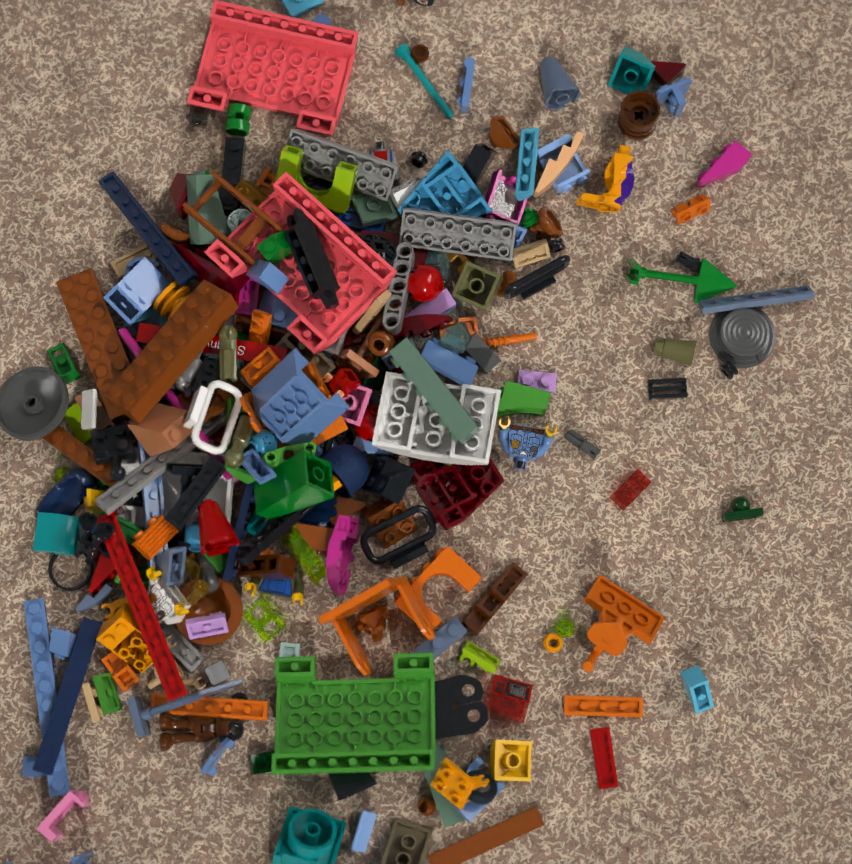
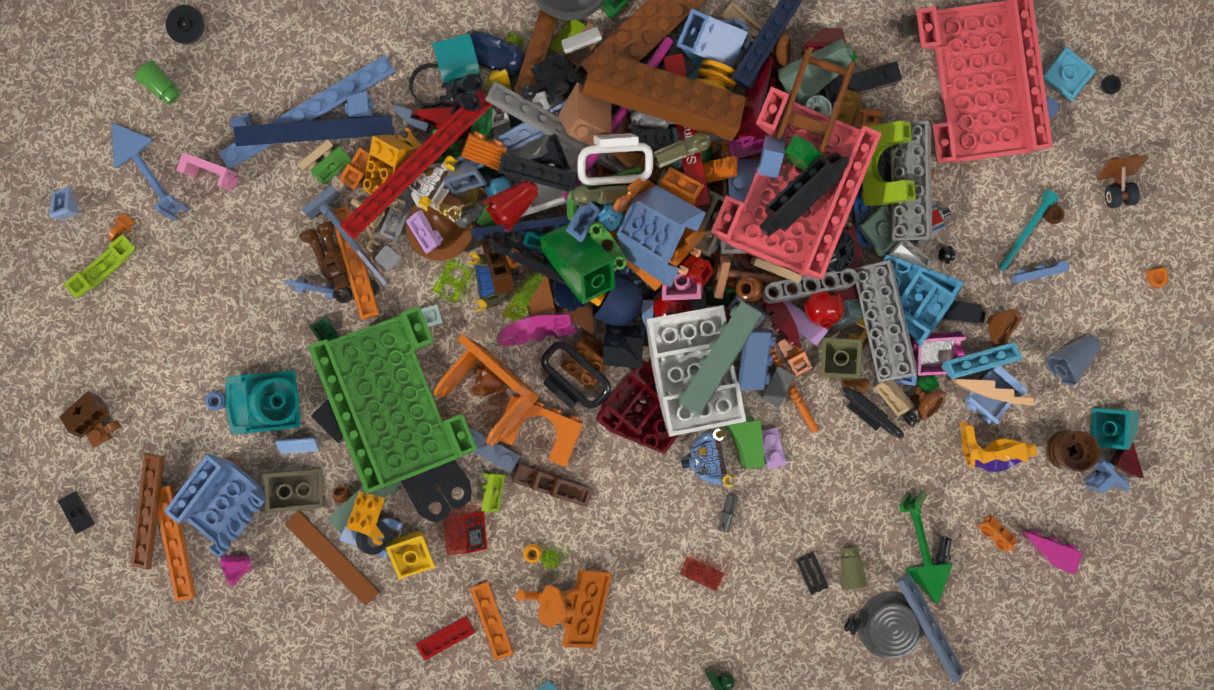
camera: 75 degrees right, 10 degrees up
(238, 119) = (922, 65): green wheel -> none
(456, 338) = (782, 358): clear light blue slope -> none

